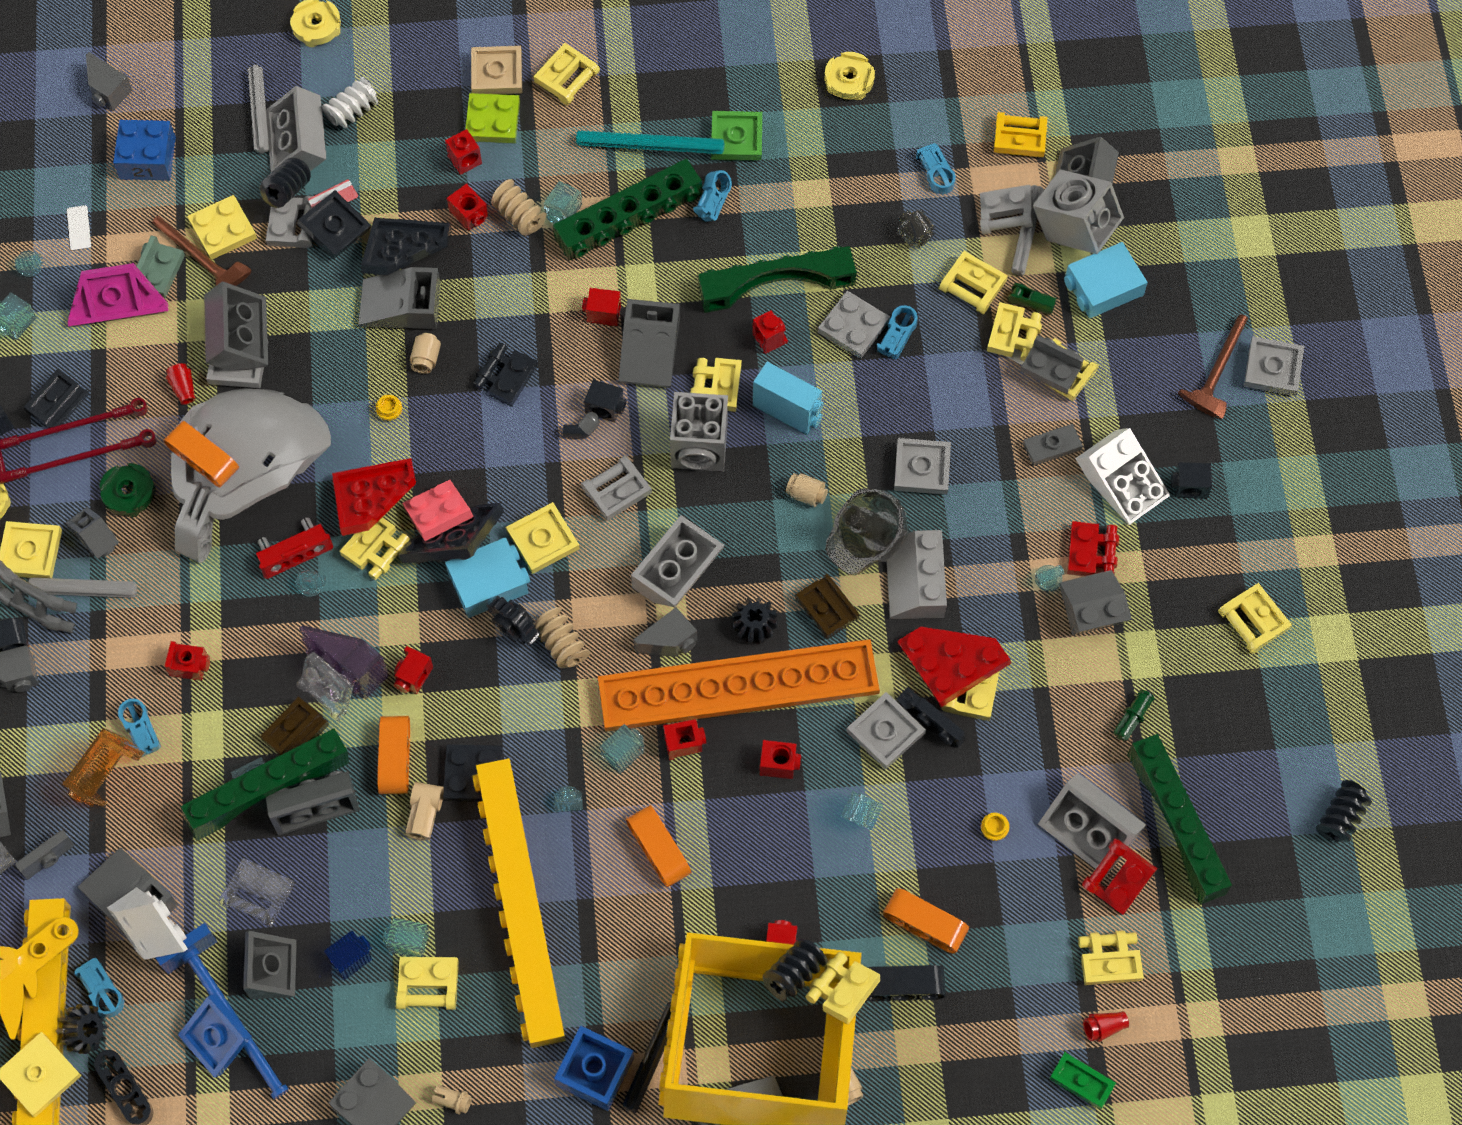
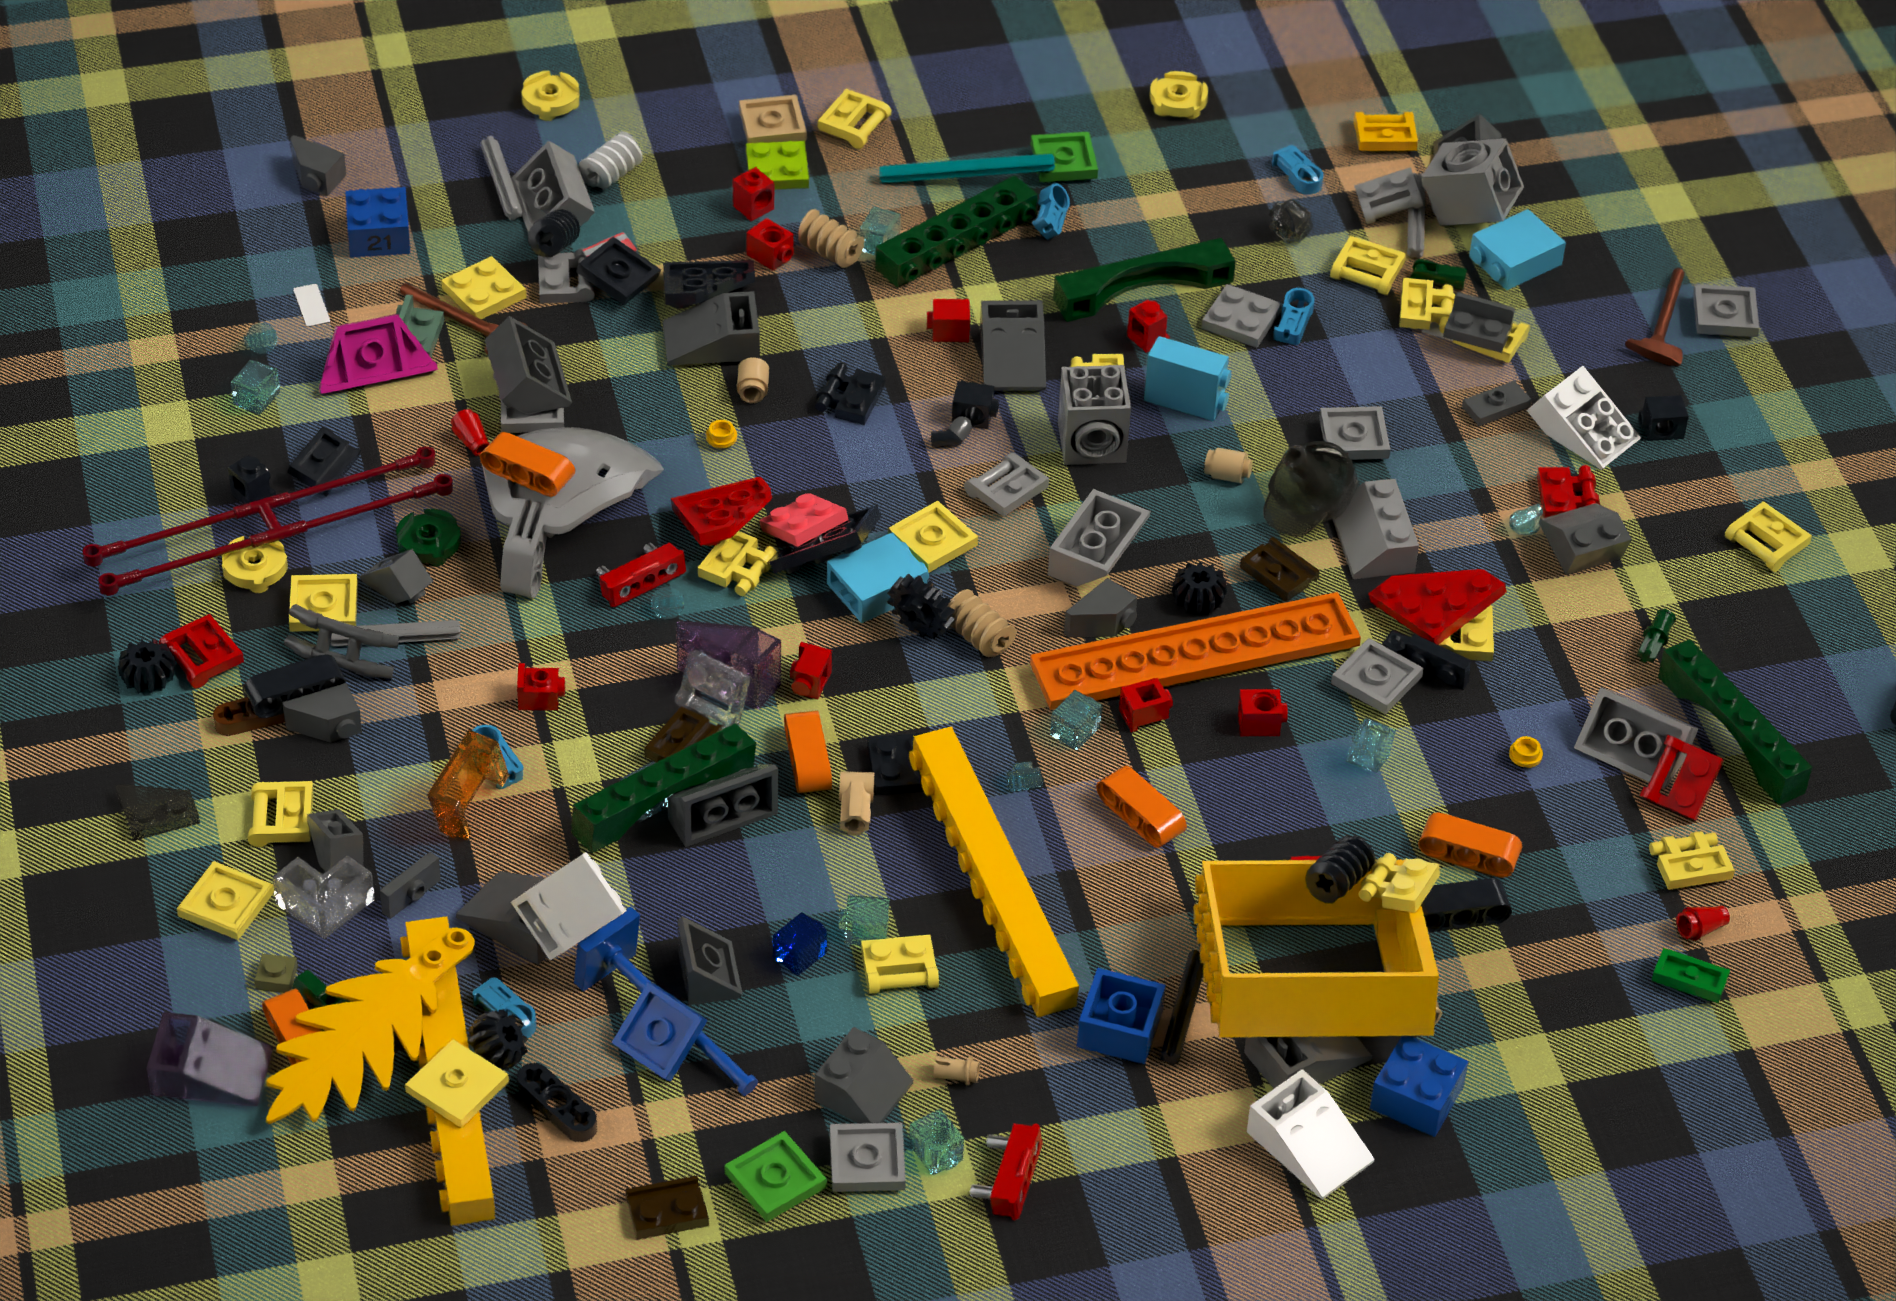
camera: 10 degrees left, 20 degrees down
(261, 884) = (676, 892): clear plate -> none

